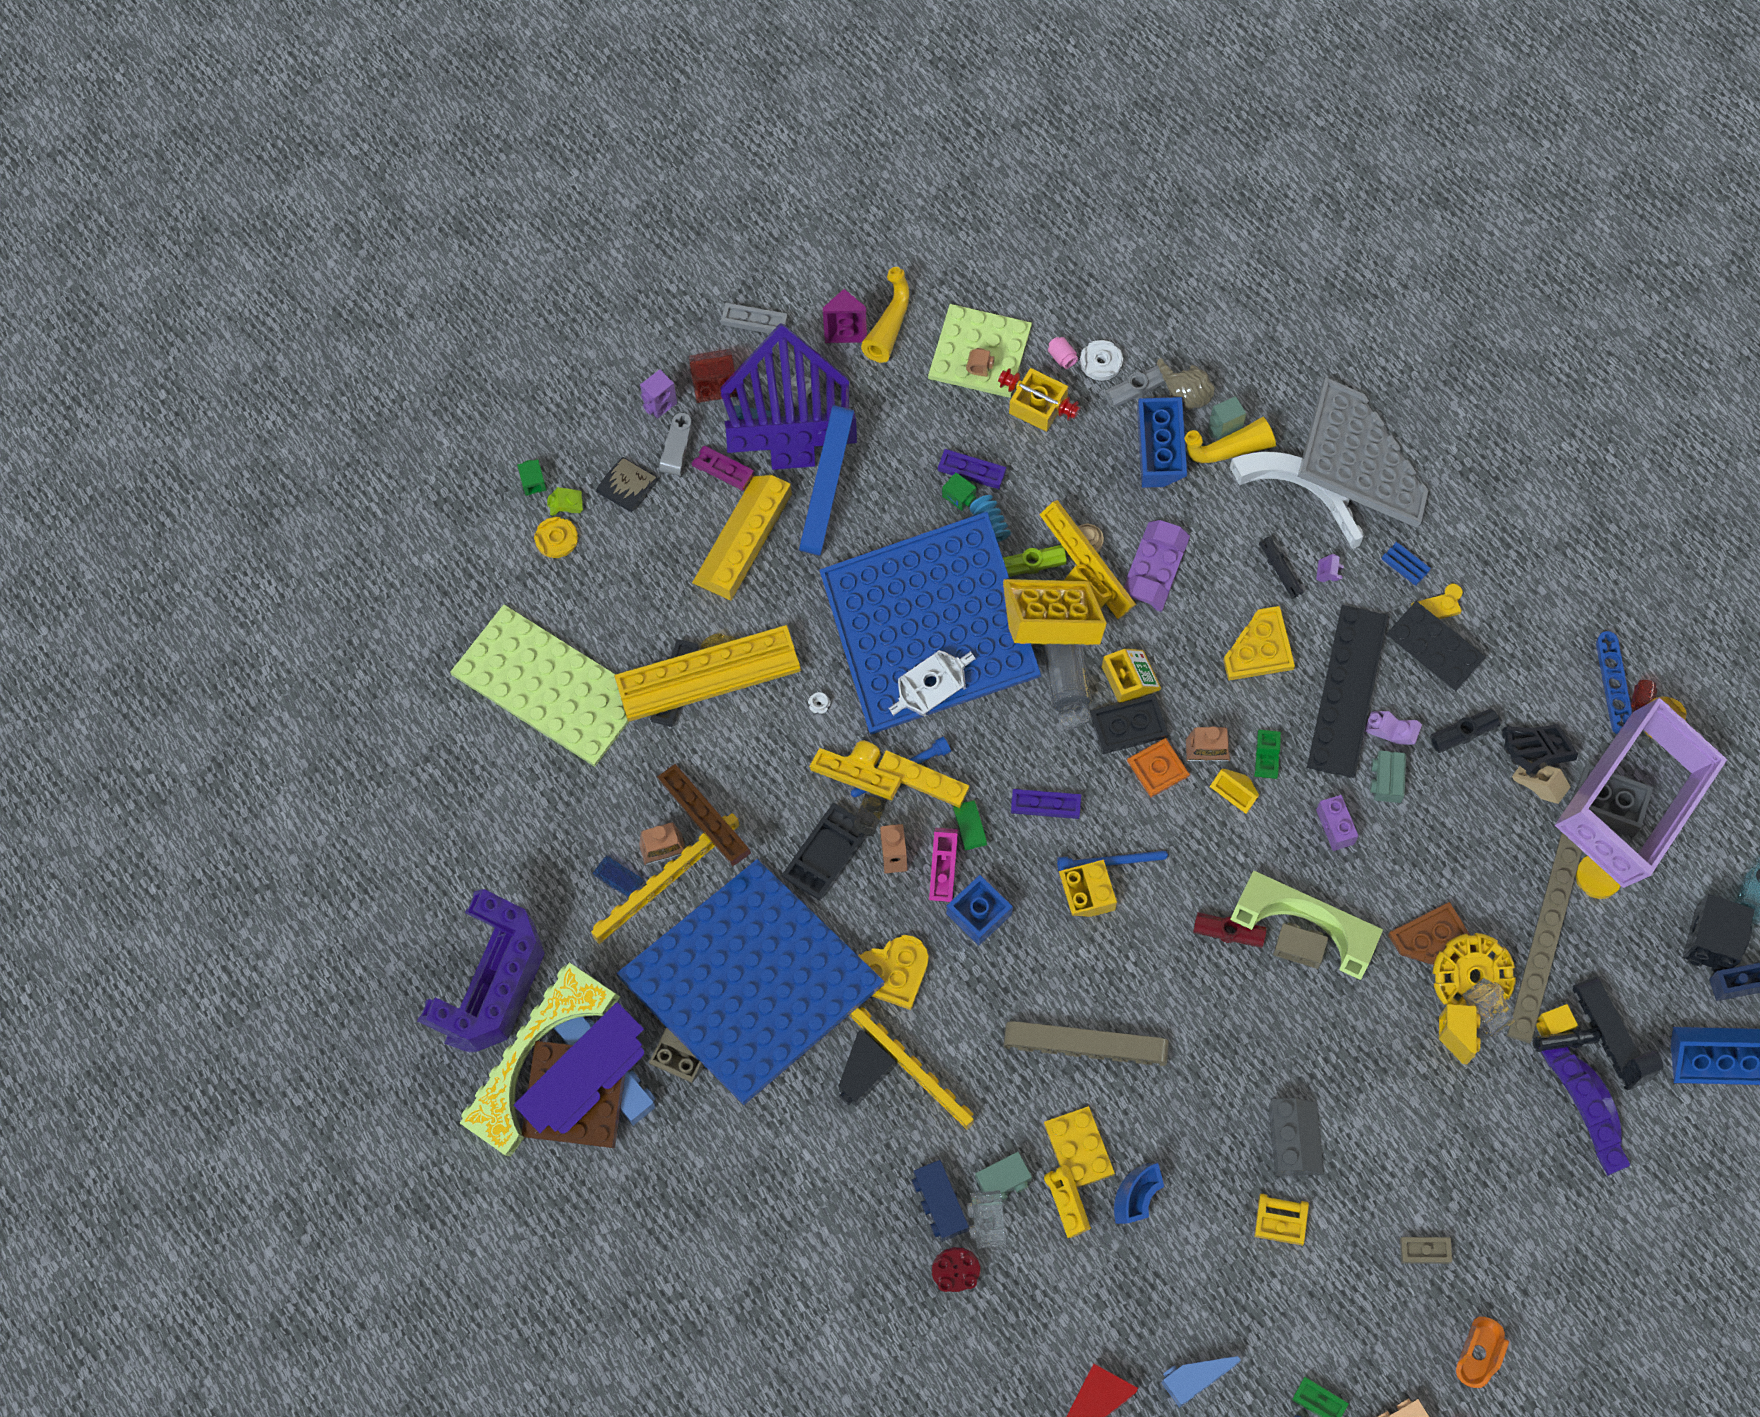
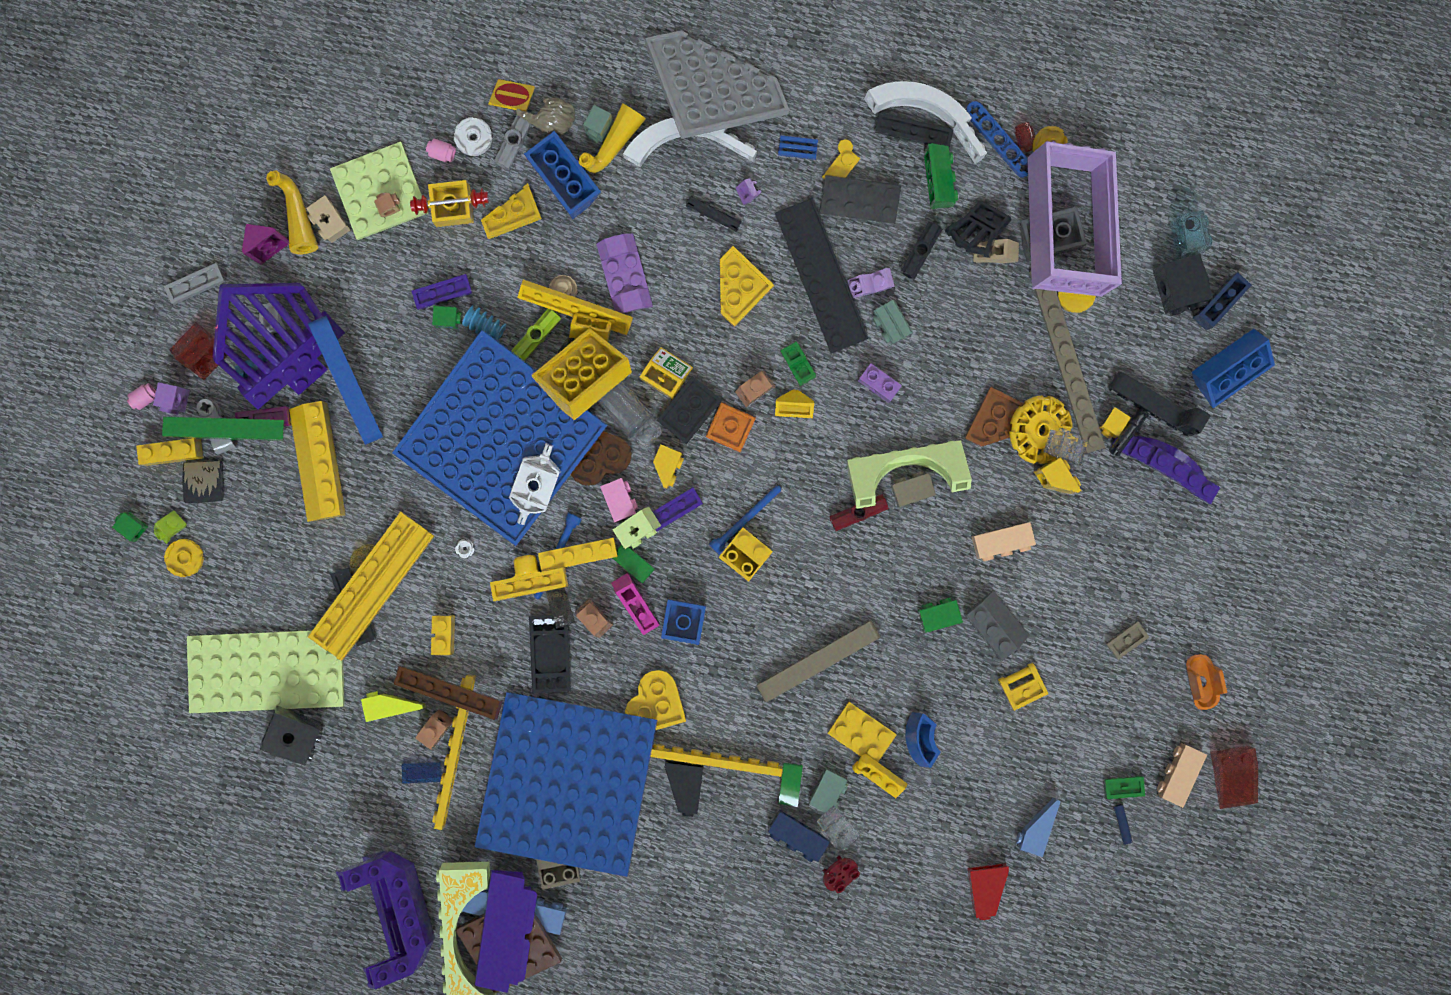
camera: 40 degrees left, 20 degrees up
(530, 765) = (298, 747): none -> black brick
(619, 439) = (169, 452): none -> yellow brick
(630, 378) = (141, 396): none -> bright pink brick
(633, 790) = (386, 705): none -> neon yellow slope
(685, 448) = (223, 428): none -> green slope
(737, 767) = (444, 629): none -> yellow piece
(914, 353) = (324, 208): none -> tan brick
(969, 1145) = (790, 784): none -> green slope
(998, 792) = (644, 521): none -> yellowish green brick
(999, 758) = (618, 499): none -> bright pink brick
(1014, 708) = (607, 455): none -> reddish brown plate
(1071, 755) = (666, 463): none -> yellow slope
(1093, 448) = (513, 214): none -> yellow wing
(1163, 347) = (511, 95): none -> piece
(1243, 1085) = (940, 615): none -> green brick
(1360, 1059) = (1003, 541): none -> light nougat brick
(1531, 675) = (940, 176): none -> green slope
(1533, 621) = (913, 130): none -> black plate
(1567, 601) = (932, 100): none -> white arch

